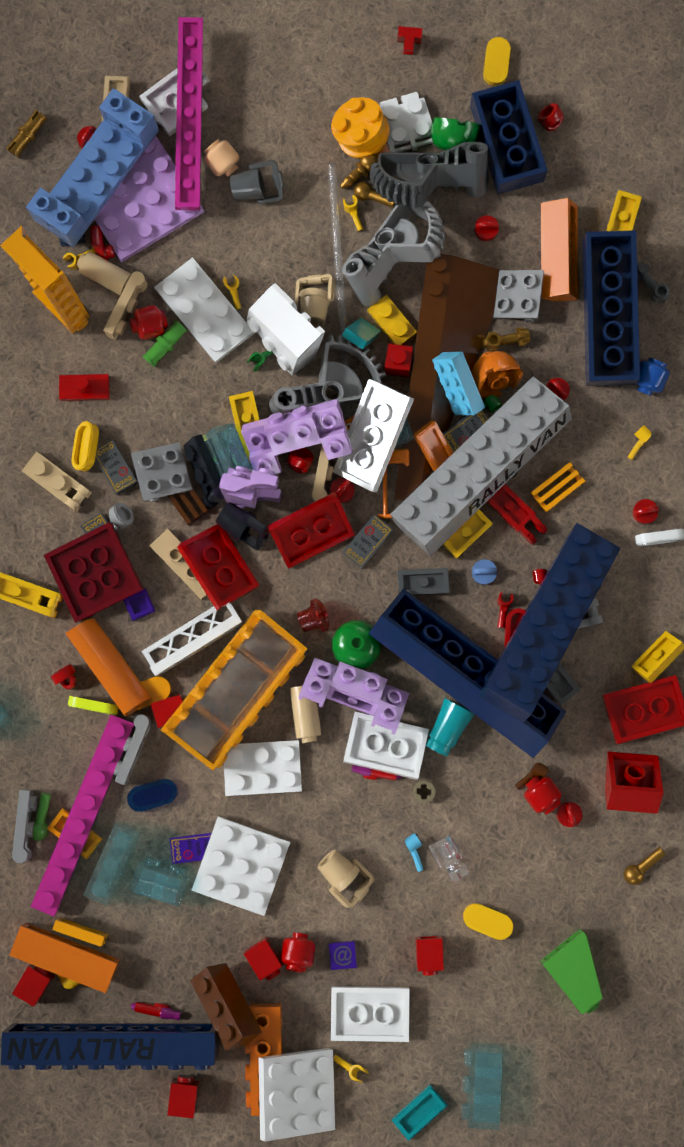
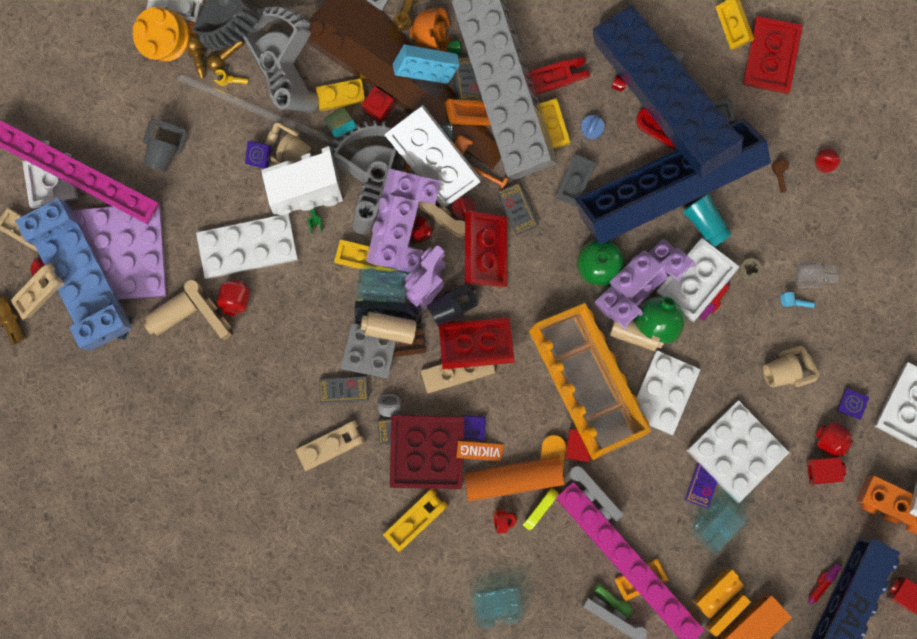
camera: 60 degrees left, 0 degrees up
(47, 279) = (159, 359): light orange window -> none
(63, 143) = (37, 291): none -> tan plate
(67, 256) = (143, 330): yellow hand -> none
(84, 387) = (260, 381): red tile -> none
(85, 446) = (312, 405): yellow tile -> none
(95, 913) = (718, 592): none -> light orange bracket
(98, 245) = (141, 307): red arm -> none
(112, 863) = (684, 558): clear light blue brick -> none
(119, 621) = (479, 451): none -> orange sticker
(152, 795) = (641, 496): clear blue tile -> none
(164, 343) = (258, 293): bright green pin -> none
(190, 477) = (388, 327): none -> tan brick
(194, 646) = (534, 398): white fence -> none
(221, 158) = (123, 164): light nougat head -> none
(226, 1006) = (852, 520): reddish brown brick -> none
(233, 290) = (242, 212): yellow hand -> none
(294, 275) = (258, 154): none -> dark purple tile
(314, 617) = (559, 285): clear red piece -> none
(327, 728) = (661, 319): none -> green cylinder
(429, 954) = (887, 331): red brick -> none
(488, 921) = (882, 271): yellow tile -> none
(503, 609) = (630, 126): red hand -> none
(542, 795) = (802, 172): red head -> none
(574, 474) = (556, 51): light orange tile -> none
(633, 782) = (827, 95): red slope -> none
(634, 874) = (900, 133): pearl gold bar -> none

